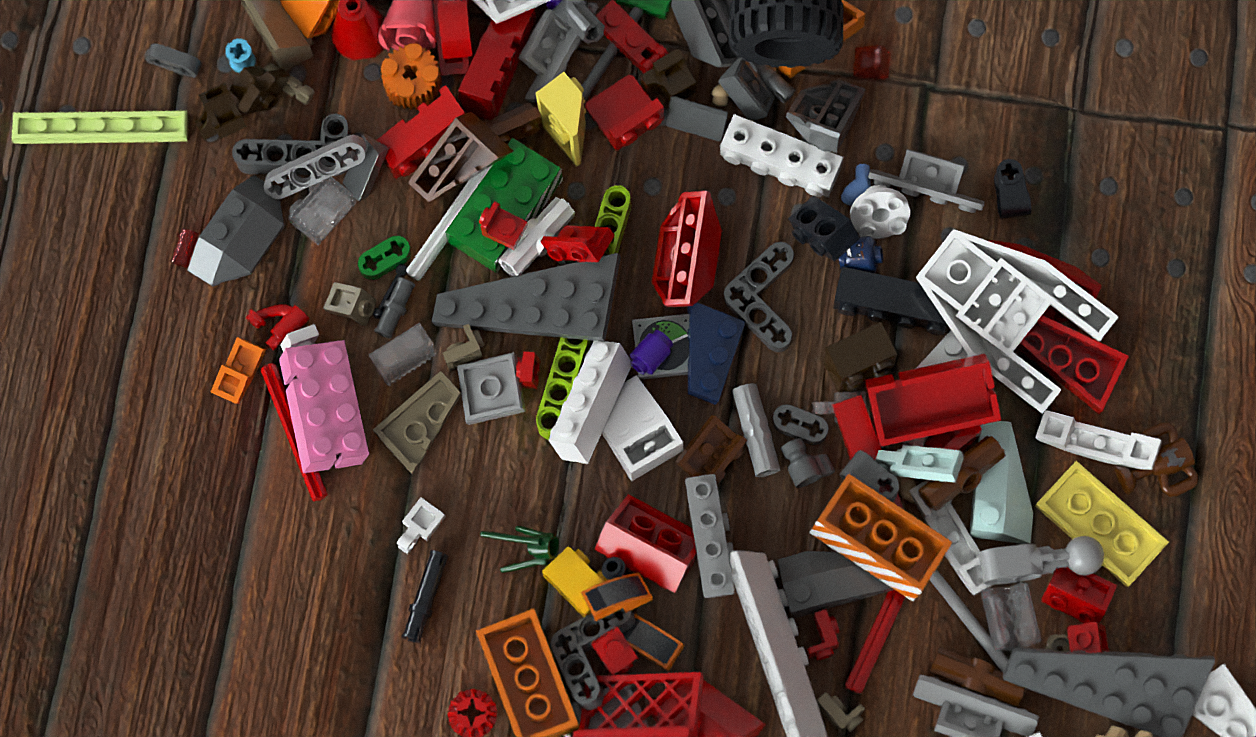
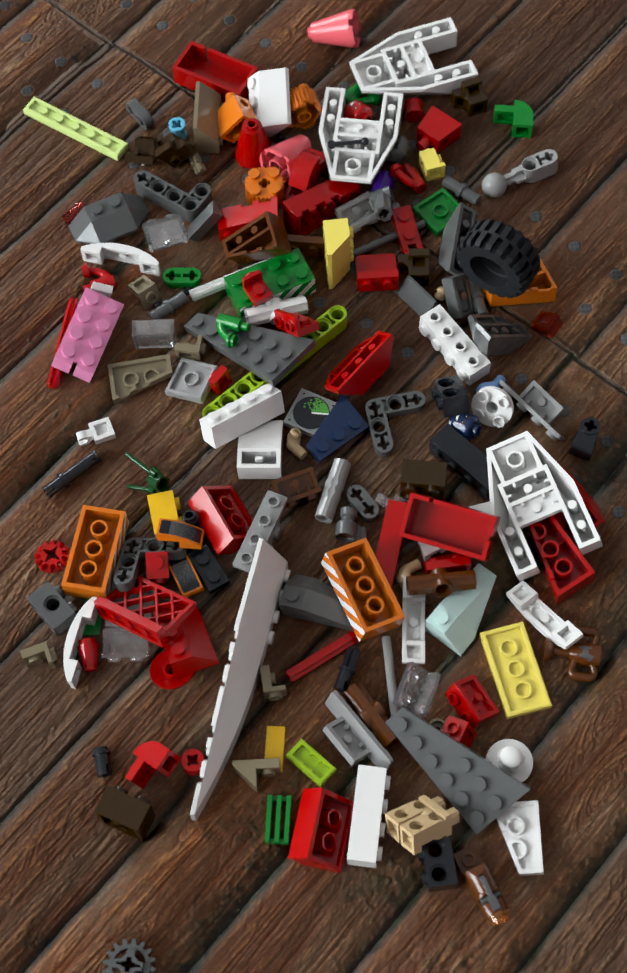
camera: 30 degrees right, 10 degrees down
(239, 370) = (54, 296): orange slope -> none
(253, 286) = (120, 252): none -> white slope
(315, 167) = (174, 206): light grey beam -> none
(499, 287) = (231, 323): none -> green plant
(651, 352) = (298, 410): dark purple brick -> none
(668, 396) = (293, 443): none -> tan arm
(672, 616) = (208, 568): none -> black hinge
(827, 628) = (296, 631): red bracket -> none
(871, 473) = (382, 549): dark grey piece -> none
(914, 641) = (347, 669): none -> black axle
(922, 462) = (418, 560): light aqua hinge -> none
(1027, 562) = (448, 661): light grey beam -> none
(1163, 633) = (511, 757): none -> white plate

